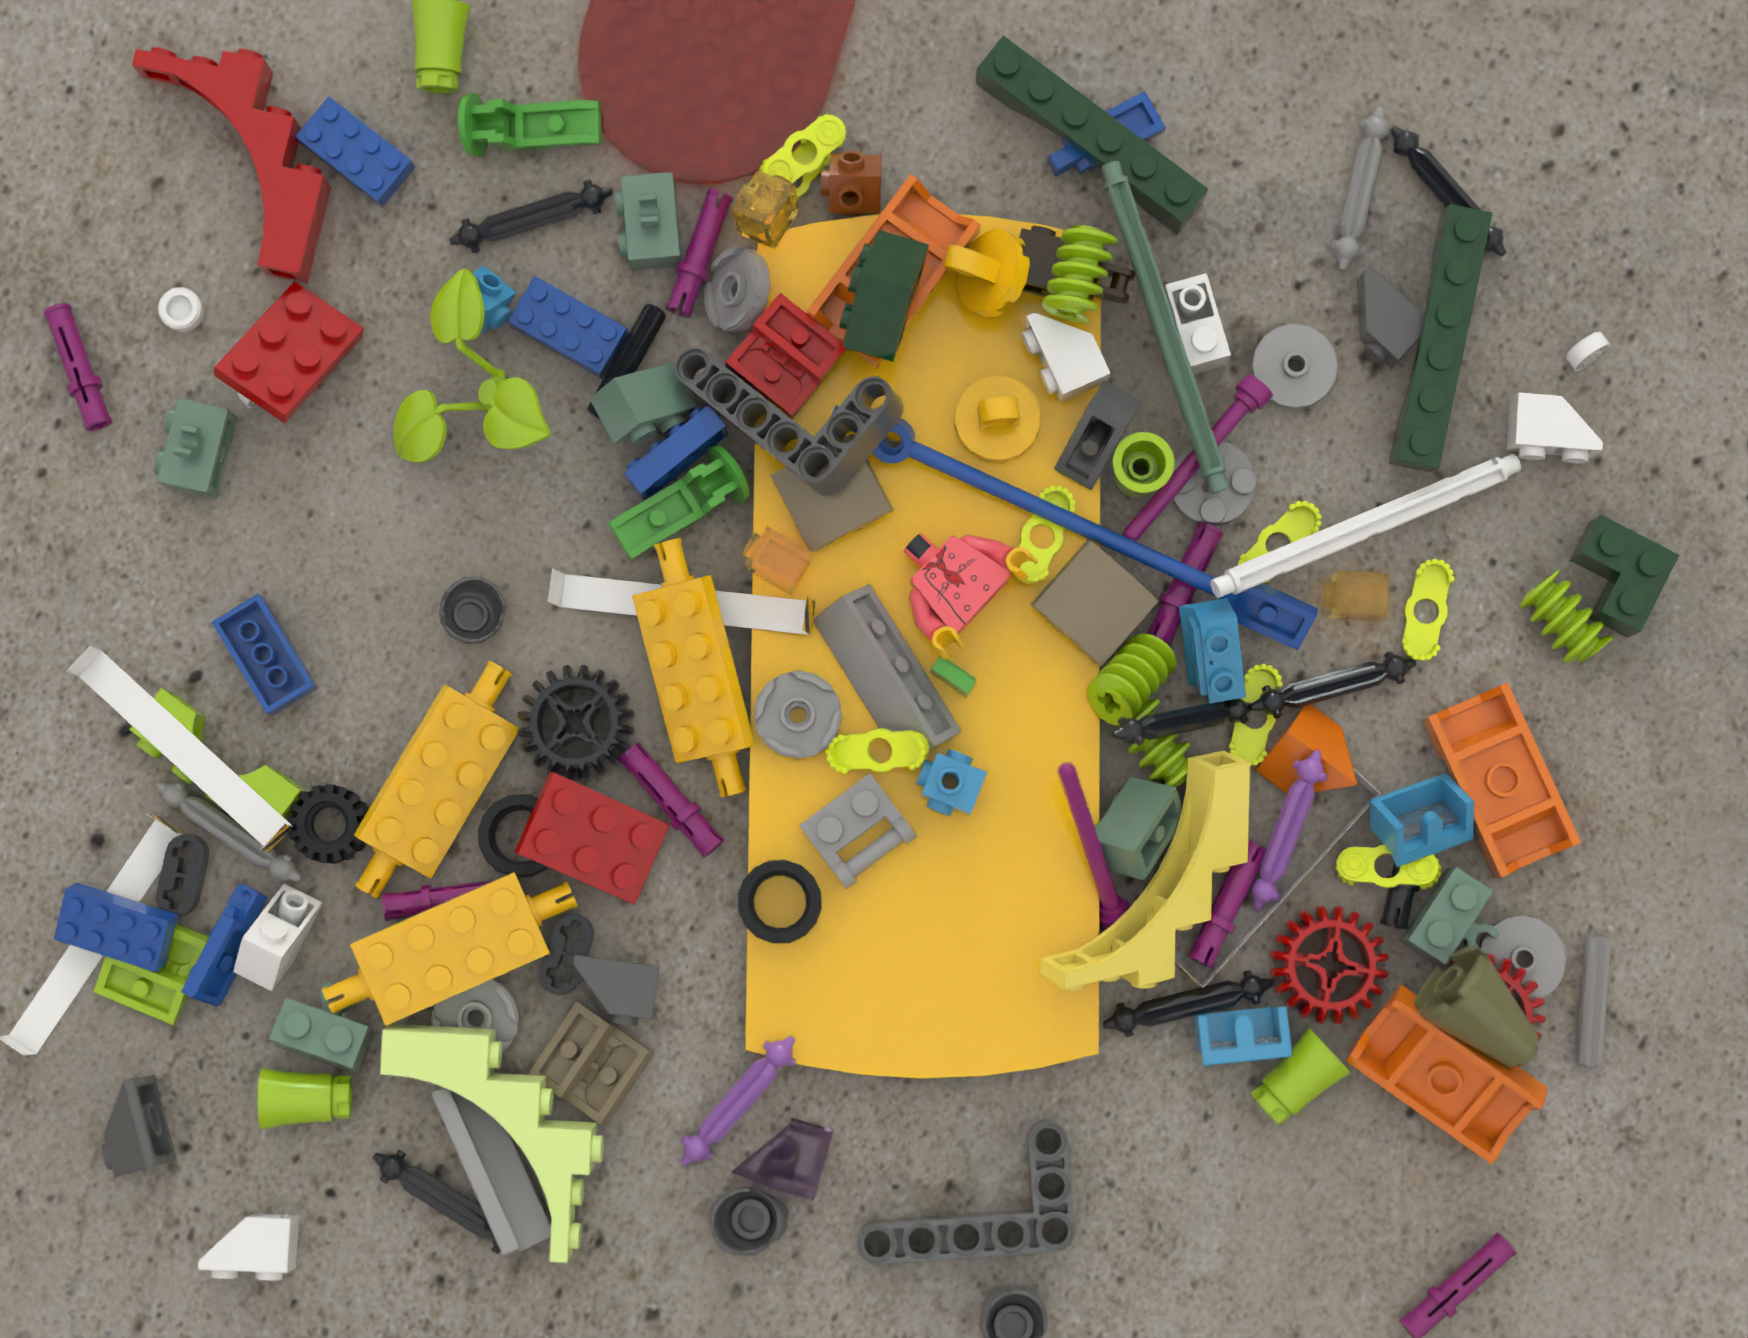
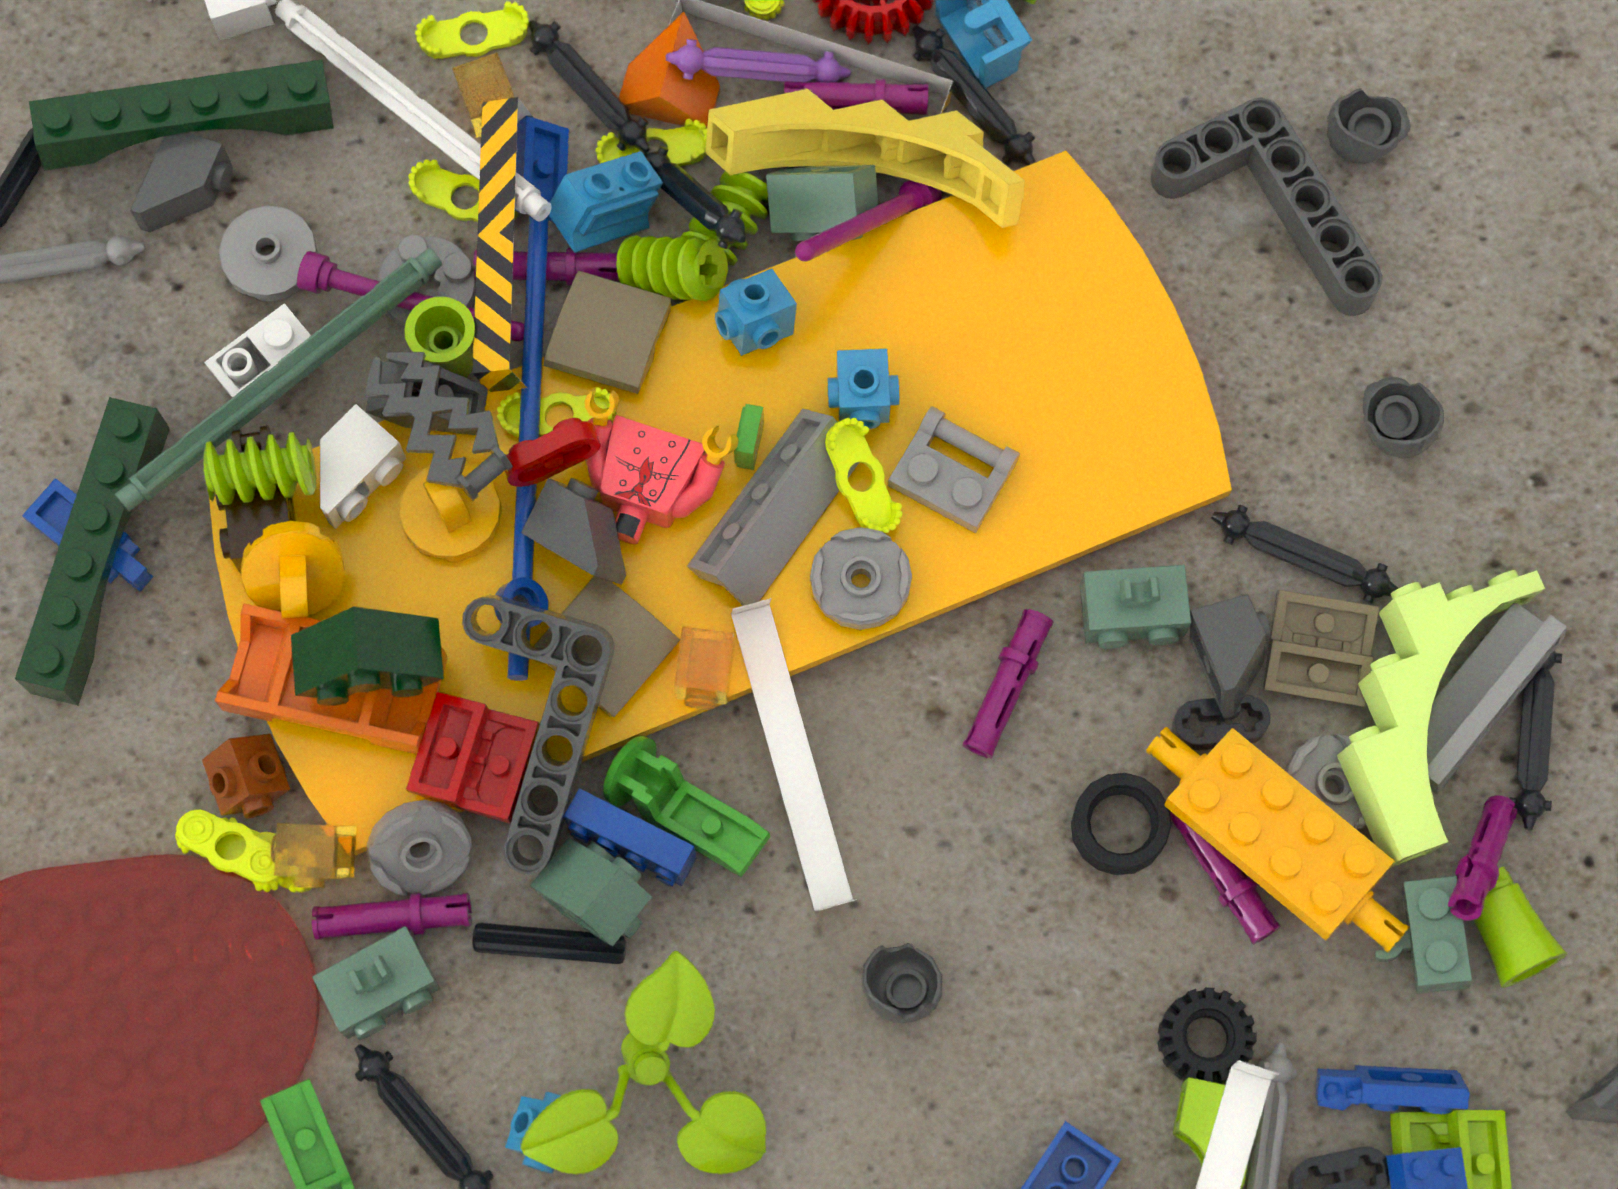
camera: 115 degrees left, 10 degrees down
(276, 937) = (1355, 1036): white slope -> none
(348, 1087) = (1478, 870): none -> magenta pin
(436, 781) = (1105, 938): yellow plate -> none
(568, 327) = (536, 1025): blue piece -> none
(590, 708) = (988, 776): black gear -> none
(592, 838) = (1089, 742): red plate -> none
(672, 1088) = (1305, 553): none -> black wheel
(687, 928) = (1135, 605): none -> sand green brick
(694, 669) = (857, 712): yellow plate -> none
(738, 1100) = (1285, 476): medium lavender wheel -> none
(755, 879) = (1077, 477): black tyre -> none
(790, 1159) = (1320, 403): clear purple slope -> none
(927, 504) = (577, 528): none -> dark grey slope
(1000, 492) = (552, 453): none -> red plate
(1055, 724) = (755, 312): none -> dark azure brick
(1072, 417) = (423, 408): none -> dark grey piece
(1209, 541) = (496, 244): none -> sticker

